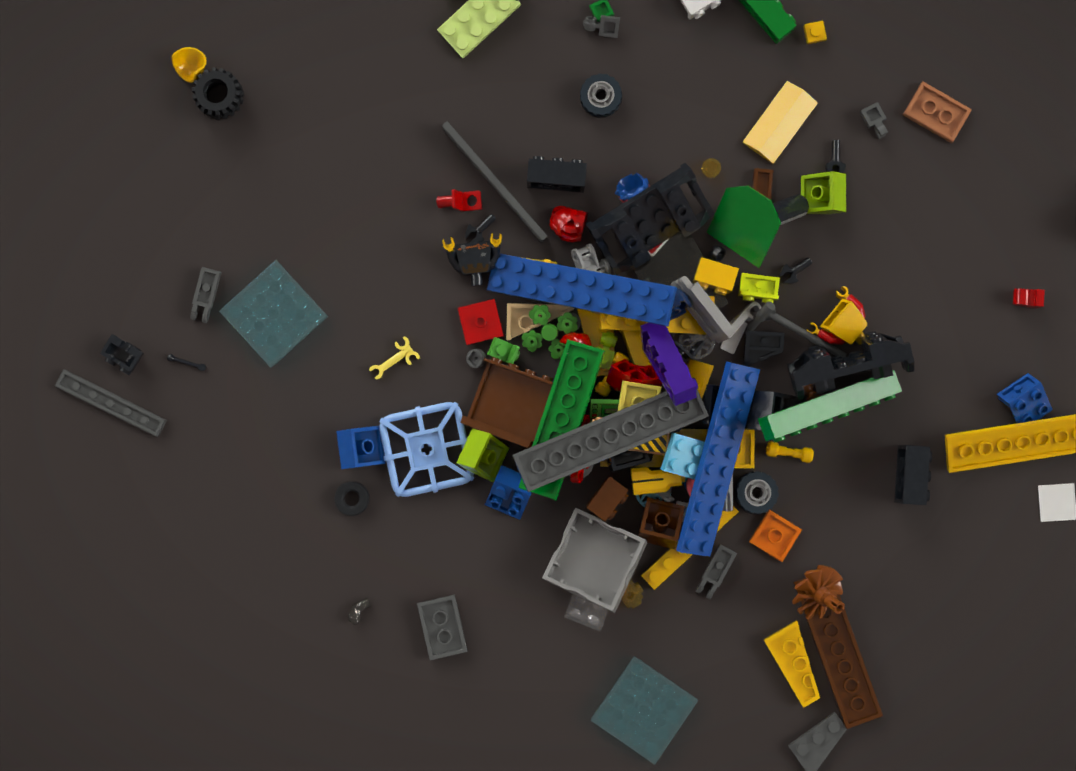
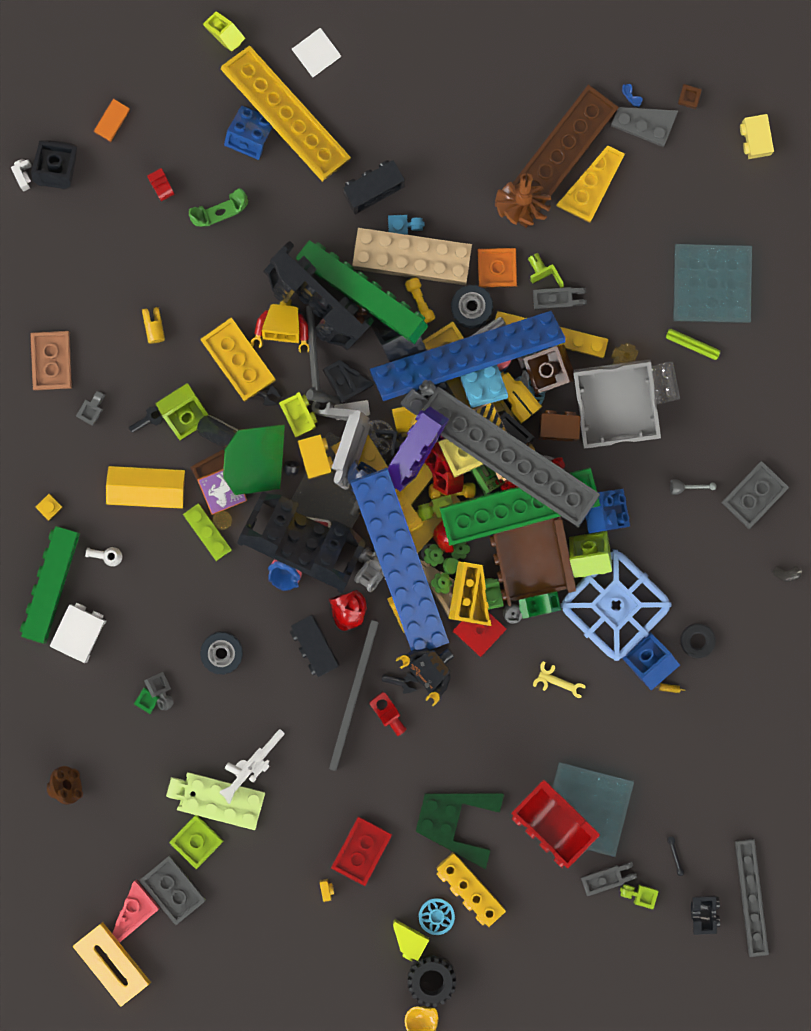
camera: 120 degrees left, 0 degrees up
(170, 314) = (644, 897): none -> lime plate
(262, 97) = (410, 941): none -> neon yellow slope
(267, 133) = (436, 916): none -> medium azure wheel
(271, 174) = (471, 889): none -> yellow brick
(277, 277) = (555, 824): none -> red cylinder
(326, 451) = (670, 688): none -> yellow piece
(346, 188) = (440, 818): none -> dark green wing
(349, 56) = (326, 889): none -> yellow plate
(362, 105) = (361, 851): none -> red plate
(468, 384) = (539, 605): none -> green brick
(490, 62) = (245, 768): none -> white piece
(491, 566) = (678, 486): none -> hinge
(514, 329) = (469, 595): none -> yellow wedge
(603, 659) = (693, 344): none -> lime axle
(708, 389) = (415, 400): none -> dark grey plate
(709, 149) = (207, 532): none -> lime plate
(735, 175) = (218, 493): none -> tile
(741, 63) = (104, 555): none -> white bar
(748, 571) = (542, 271): none -> lime bracket
(831, 469) = (412, 256): none -> tan brick
(838, 267) = (238, 359): none -> yellow plate
(843, 746) = (634, 100): none -> blue piece
(865, 477) = (399, 224): none -> dark azure plate
(909, 213) = (153, 329): none -> yellow hinge
(977, 315) = (207, 217): none -> bright green piece

